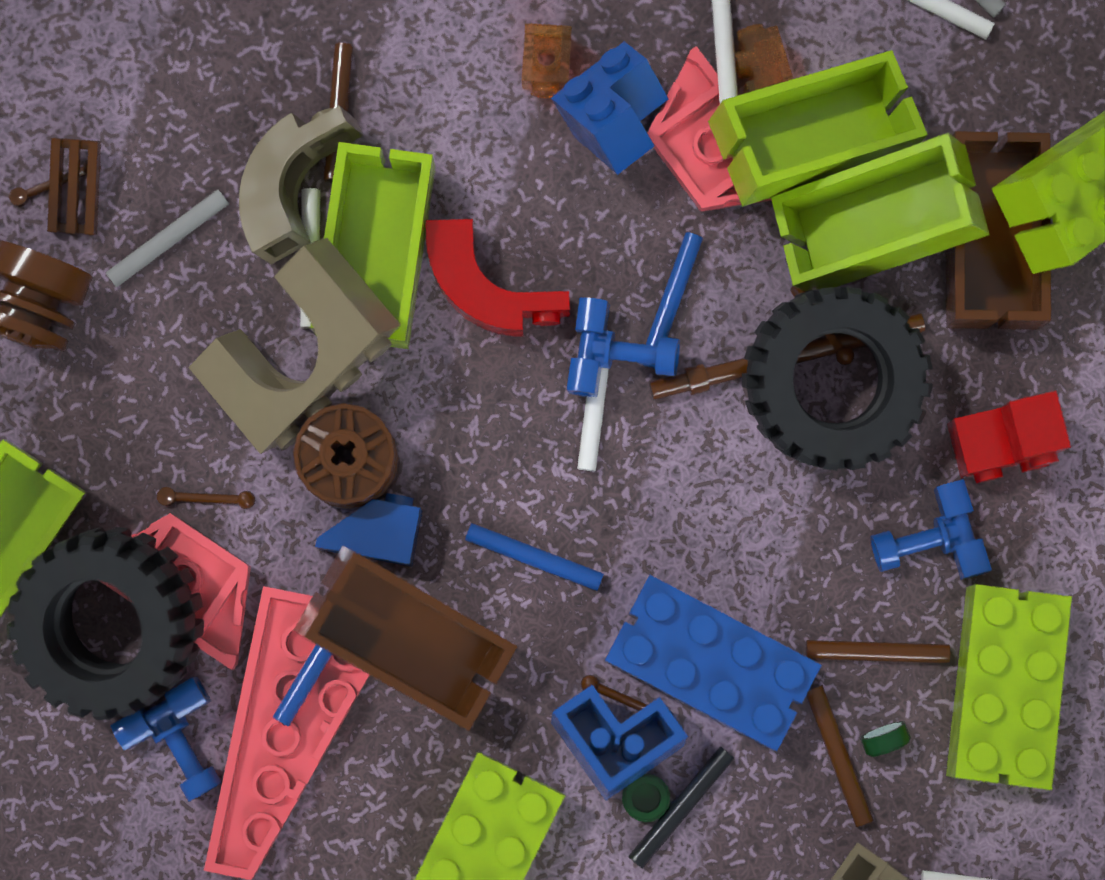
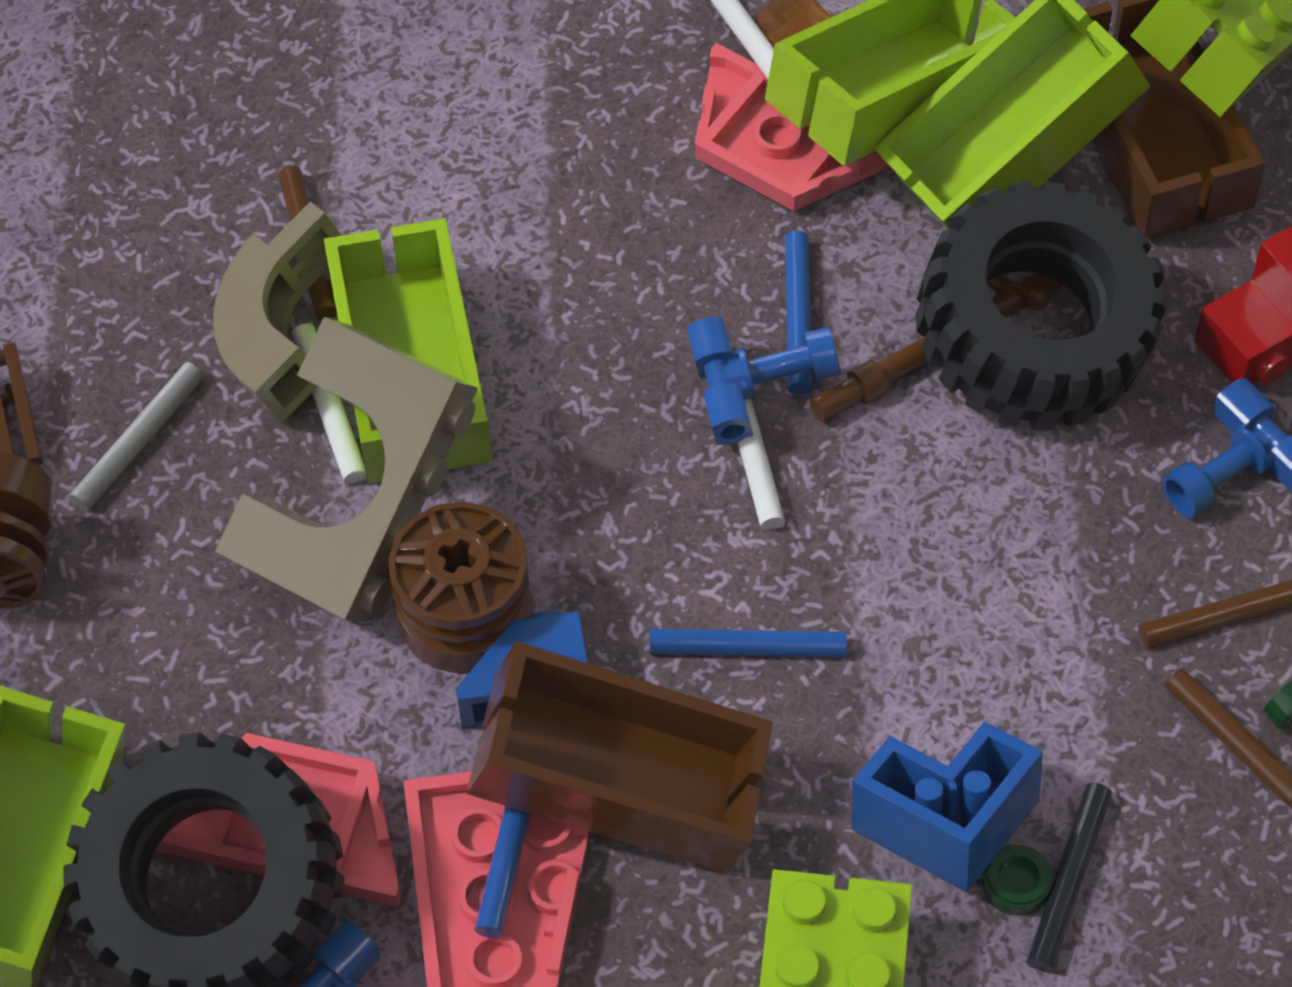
camera: 20 degrees left, 25 degrees down
(167, 497) = (341, 699): reddish brown hinge -> none
(476, 298) = (562, 371): red arch -> none
(546, 40) = (542, 107): clear orange brick -> none
(608, 104) = (641, 120): blue brick -> none
(712, 663) = (1046, 673): blue piece -> none

